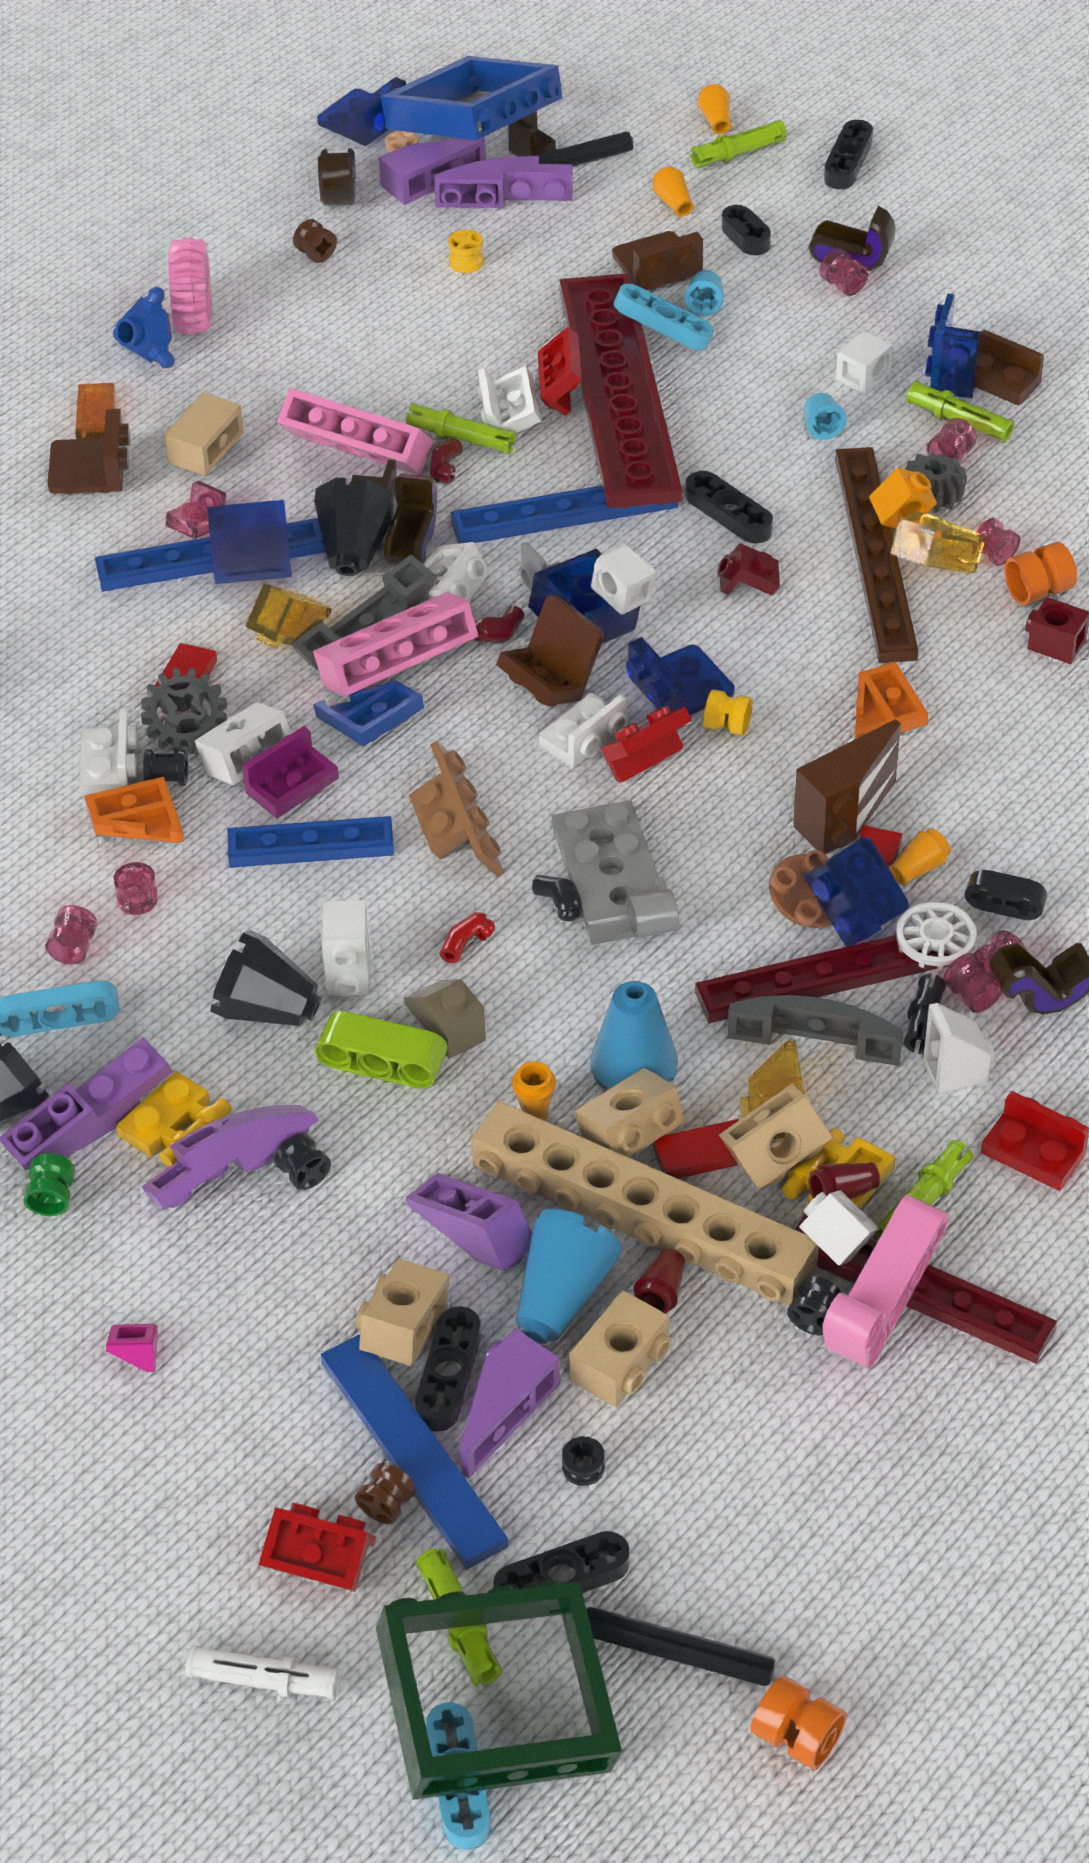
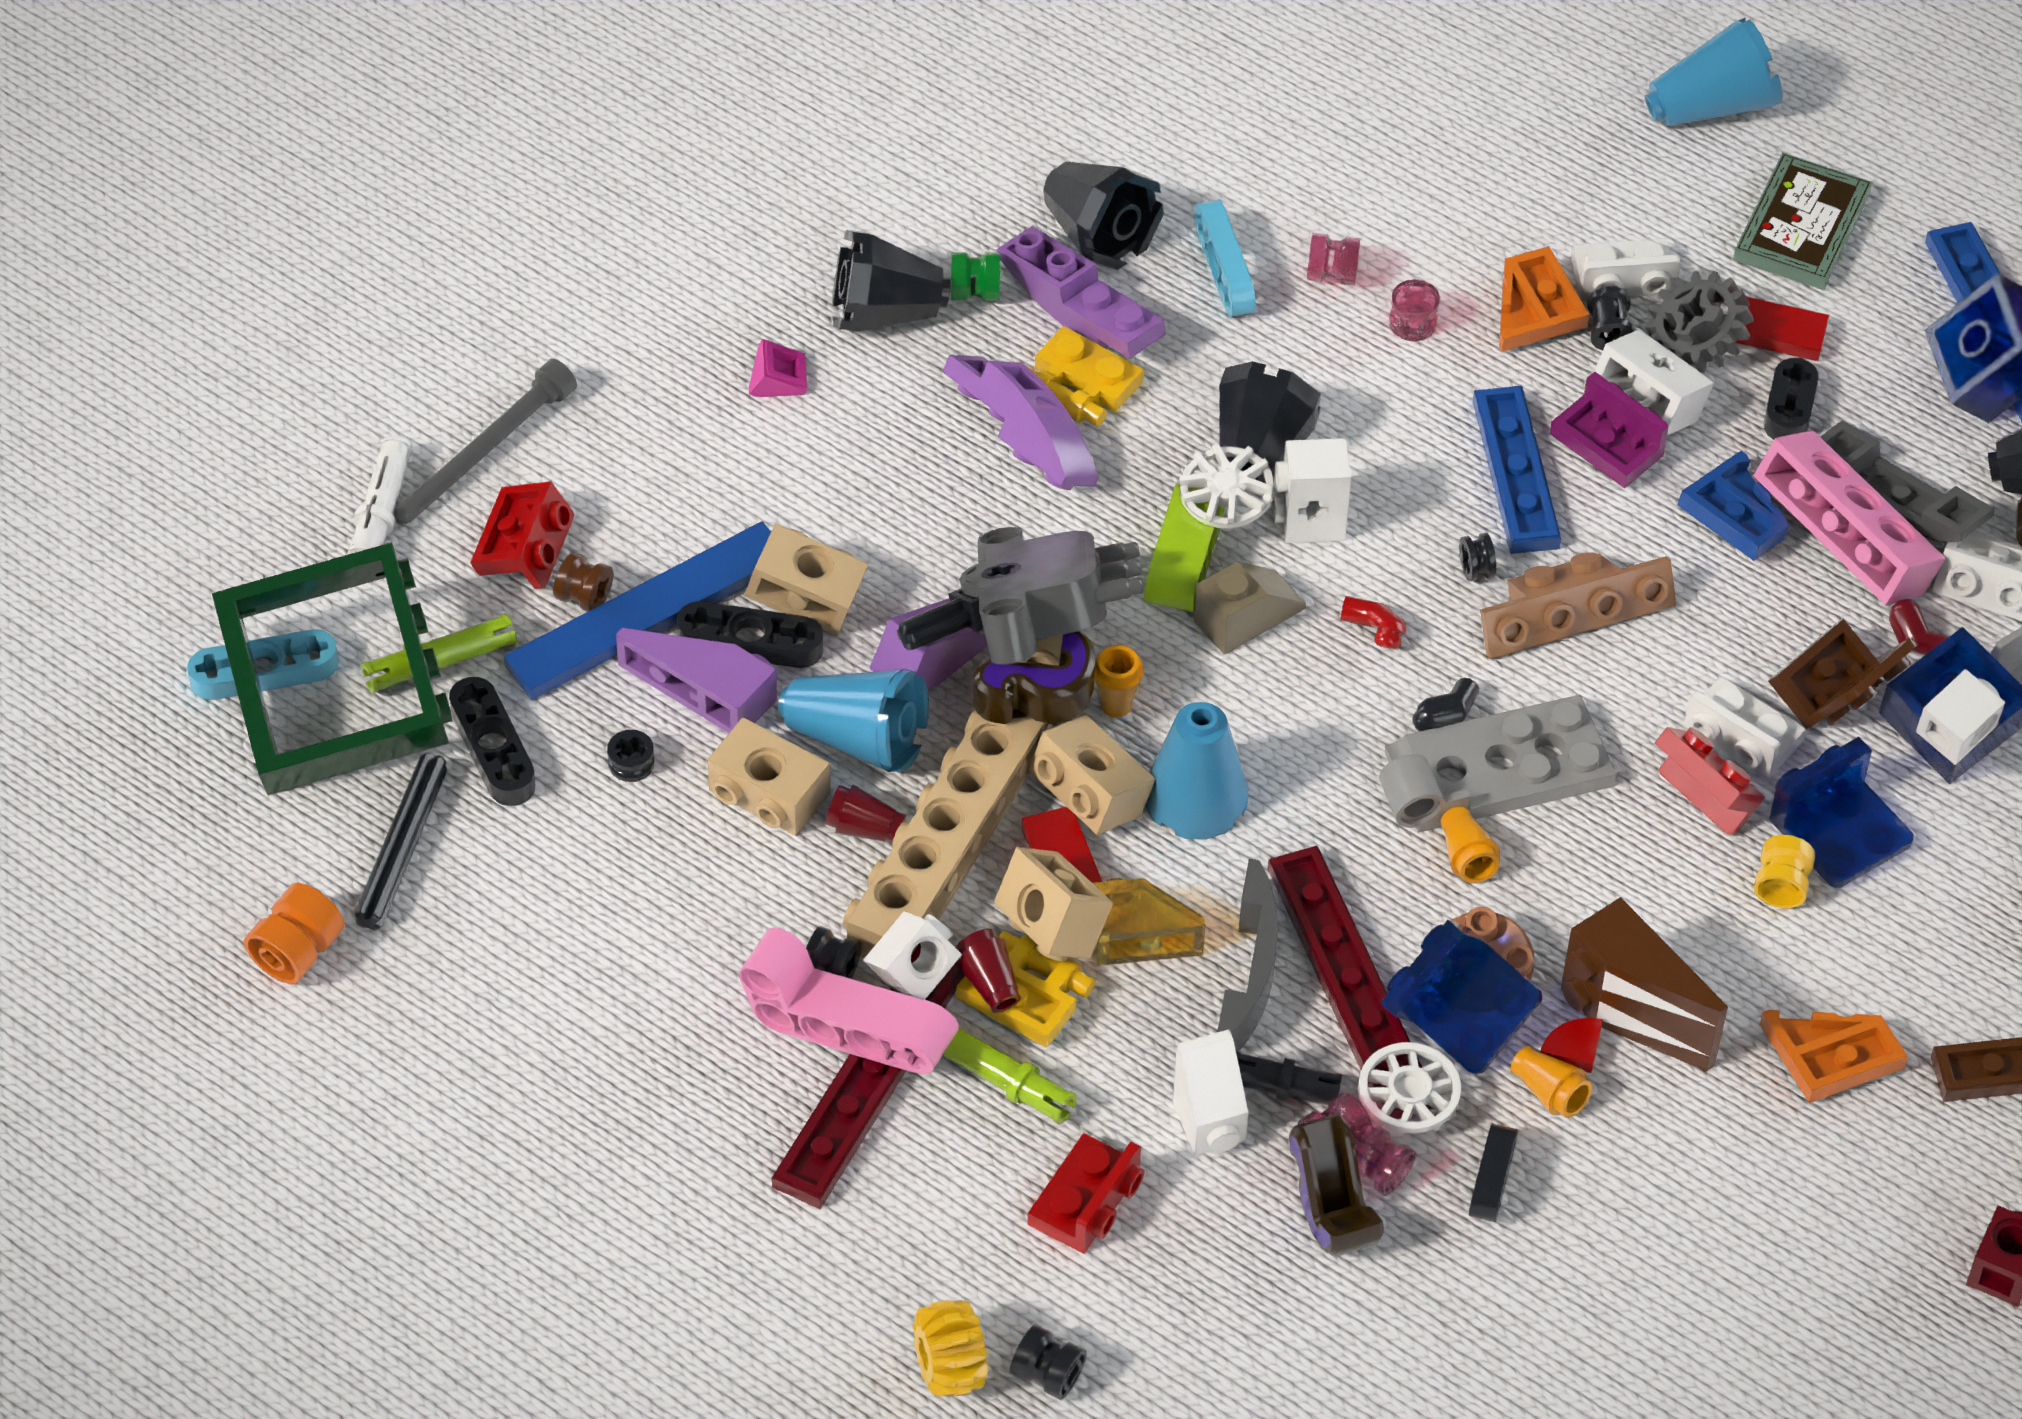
camera: 85 degrees right, 5 degrees up
(55, 1254) = (884, 285): none -> black cone
(73, 652) = (1802, 221): none -> tile
(128, 1526) = (551, 383): none -> dark grey piece
(261, 675) = (1783, 398): none -> black beam
(284, 615) = (1892, 409): clear yellow slope -> none
(302, 1161) = (1017, 485): black wheel -> none
(339, 1001) = (1226, 486): none -> white wheel
(409, 874) = (1477, 557): none -> black bush
(466, 1122) = (1030, 591): none -> dark grey piece
(567, 1115) = (1037, 689): none -> dark brown animal
(700, 889) = (1470, 849): none -> light orange cone

